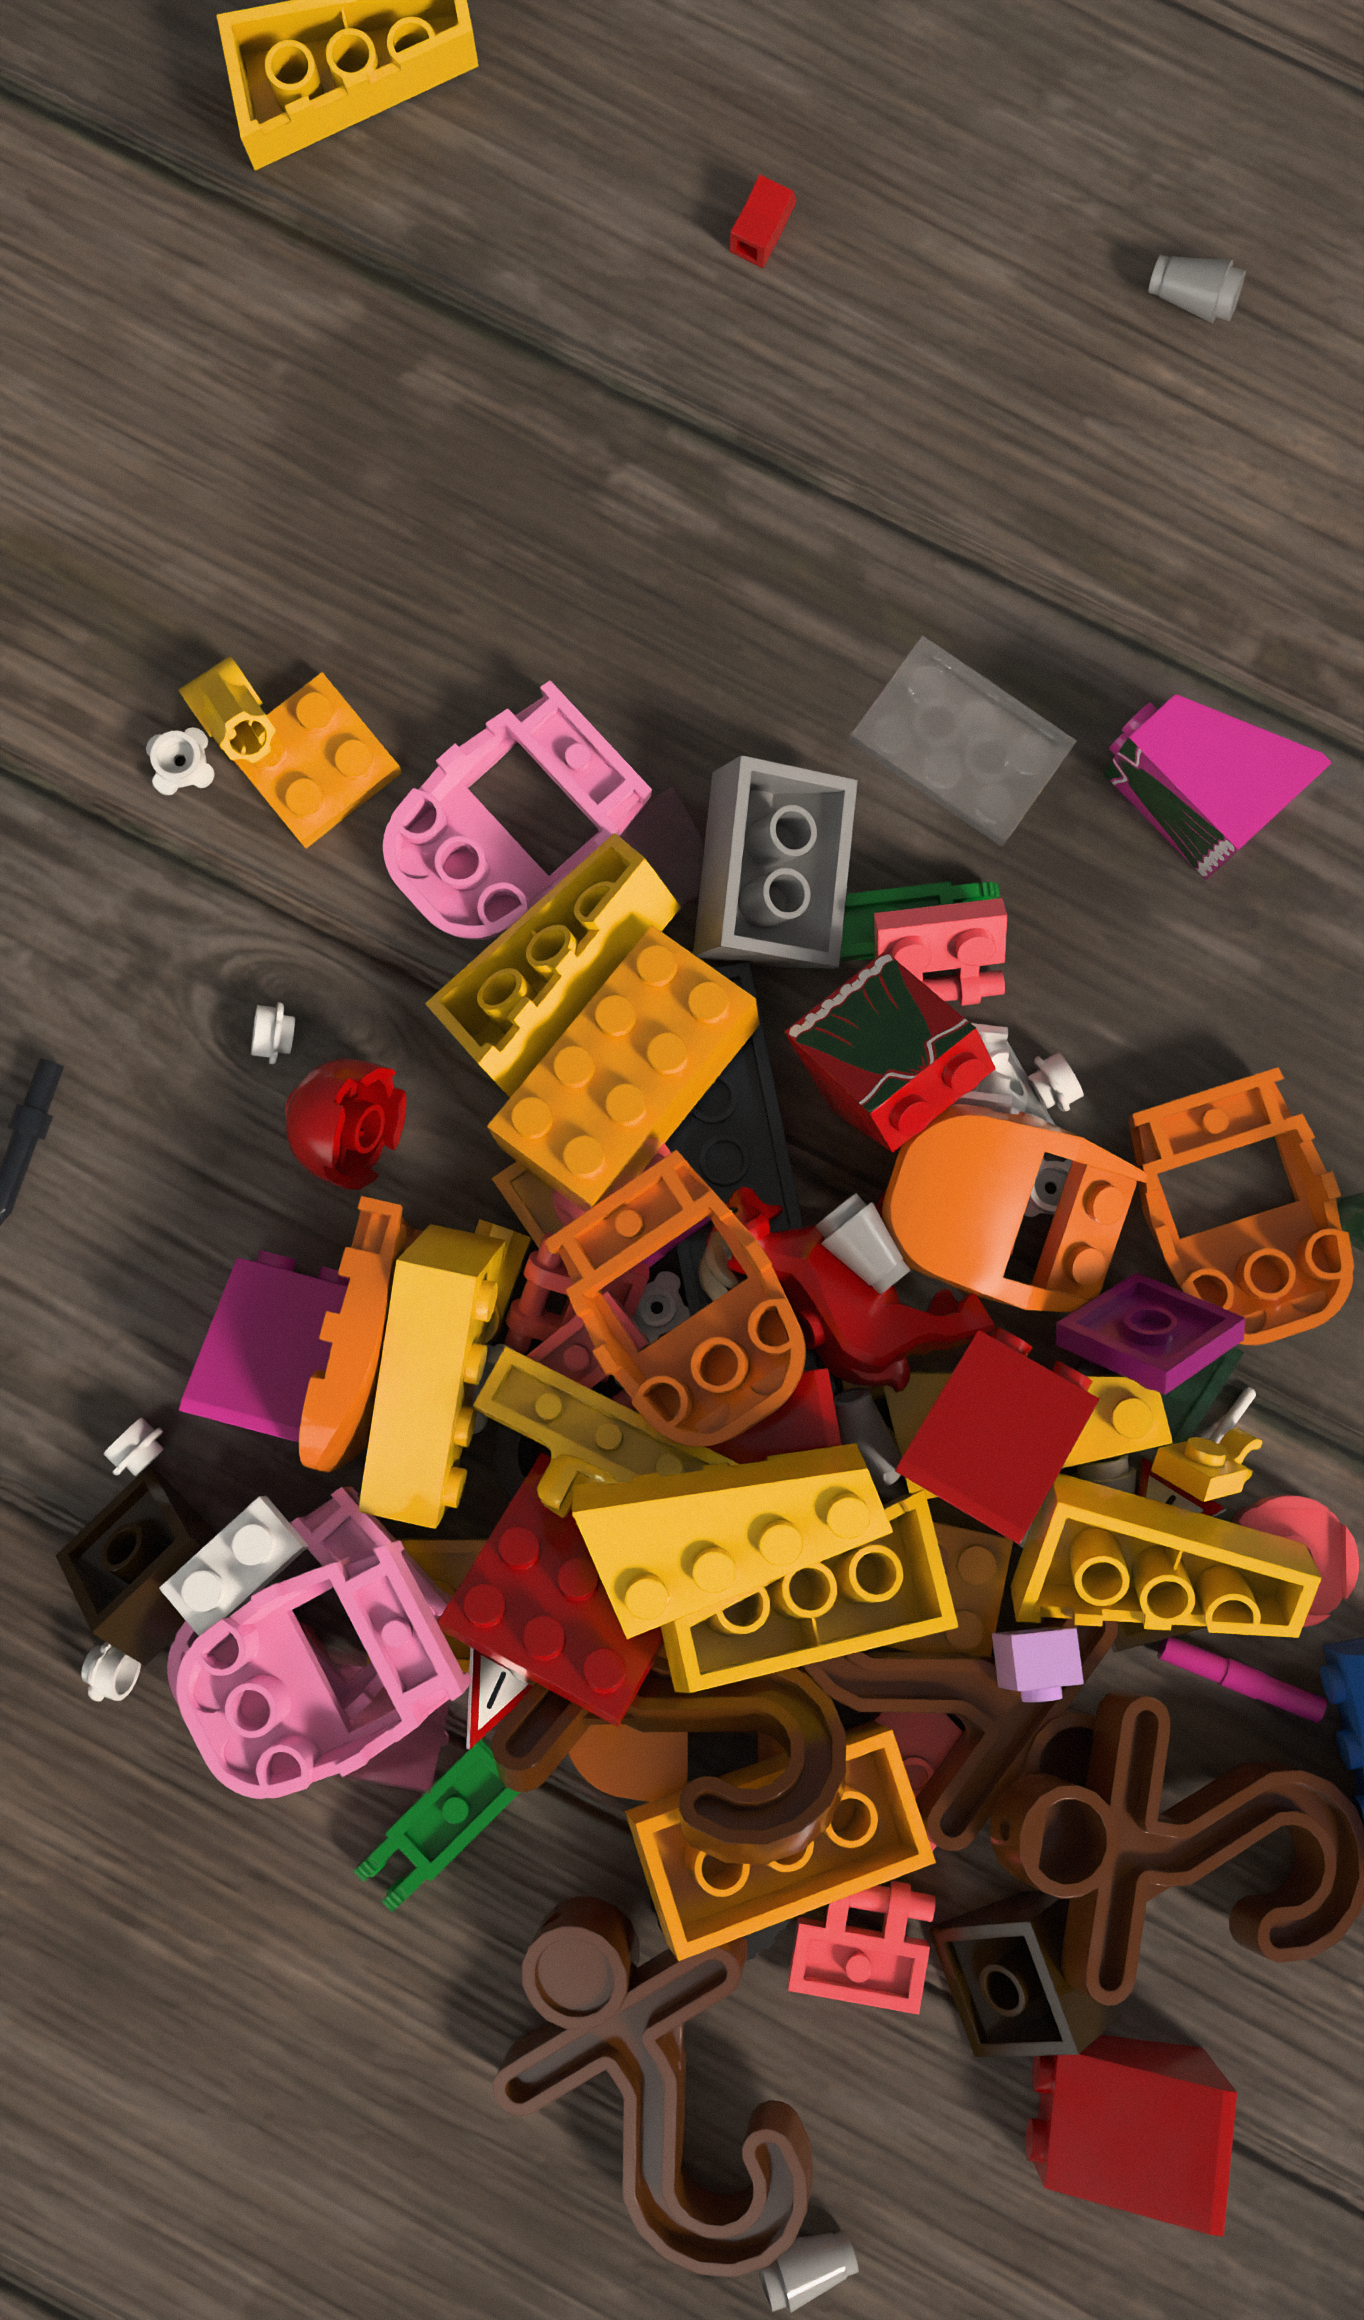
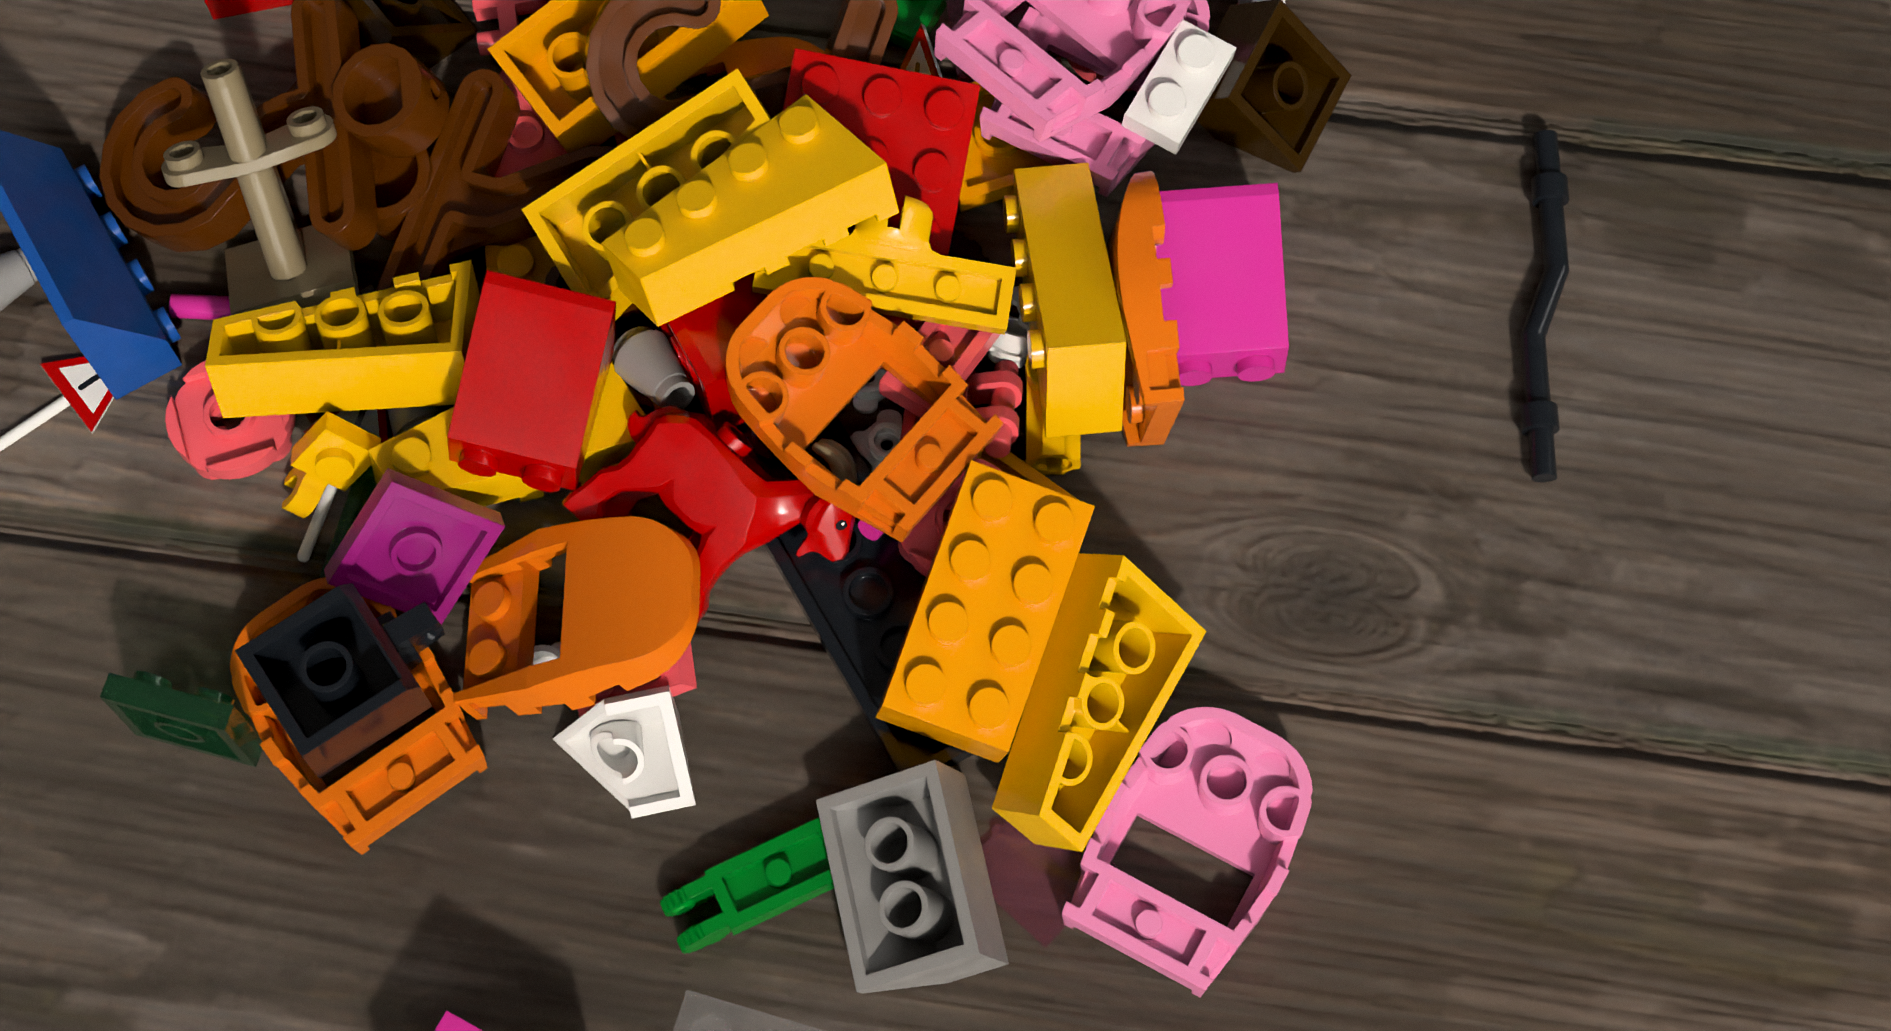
camera: 165 degrees right, 15 degrees down
(135, 1448) = (1317, 176): white plate -> none
(167, 747) = (1552, 783): white plate -> none
(230, 711) = (1526, 862): yellow piece -> none
(272, 1032) = (1346, 571): white plate -> none
(319, 761) = (1417, 849): light orange plate -> none
(344, 1119) = (1245, 504): red cylinder -> none
(863, 1243) = (708, 523): light grey cone -> none
(889, 1052) = (735, 705): slope -> none
(946, 939) = (719, 847): coral plate -> none
(1038, 1661) = (442, 233): lavender plate -> none
(1055, 1082) = (568, 773): white plate -> none
(1215, 1707) = (285, 259): none -> dark tan piece
(1257, 1215) = (341, 674): none -> black hinge

